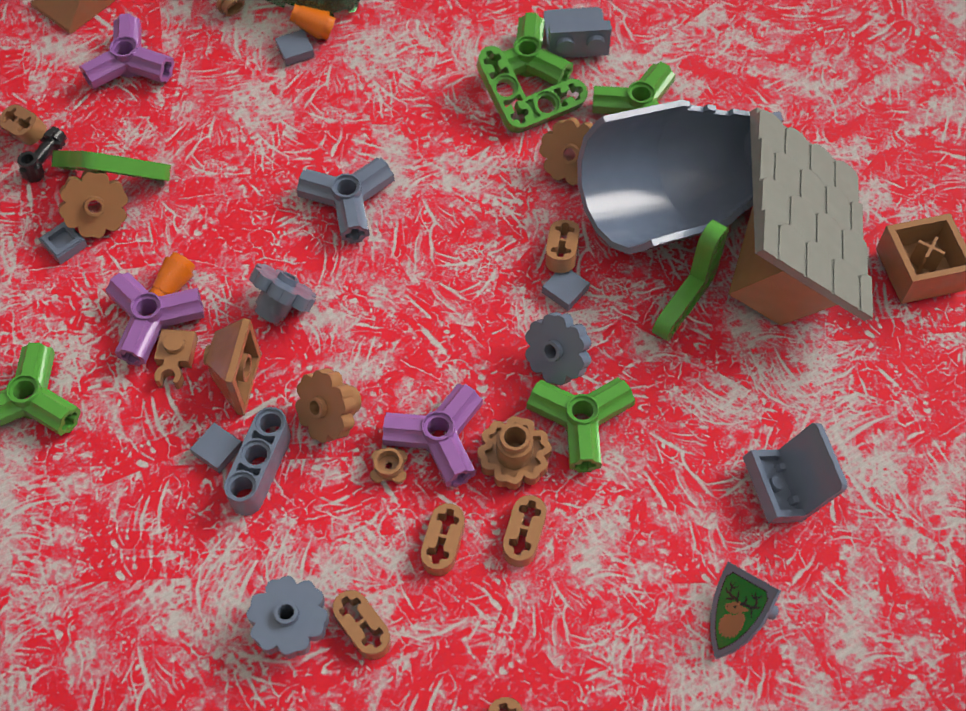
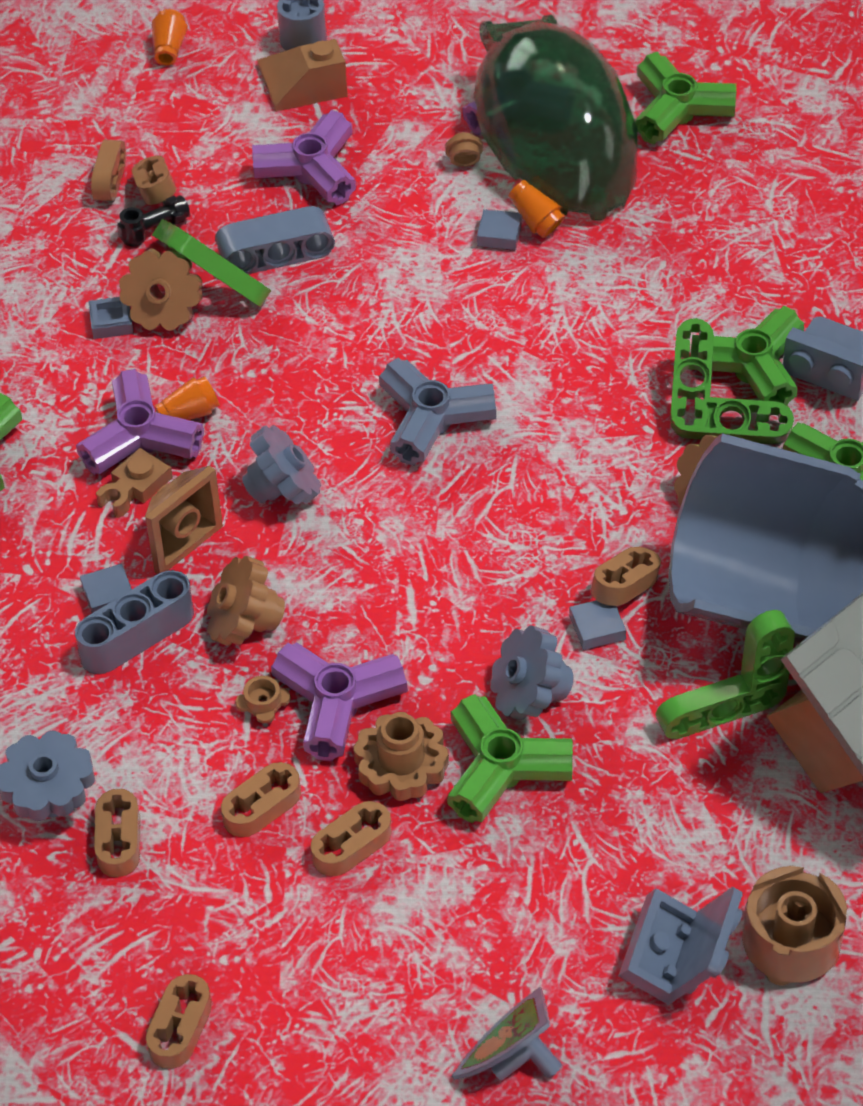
camera: 35 degrees right, 10 degrees down
(146, 126) = (276, 239): none -> sand blue beam
(852, 420) = (794, 925): none -> medium nougat brick

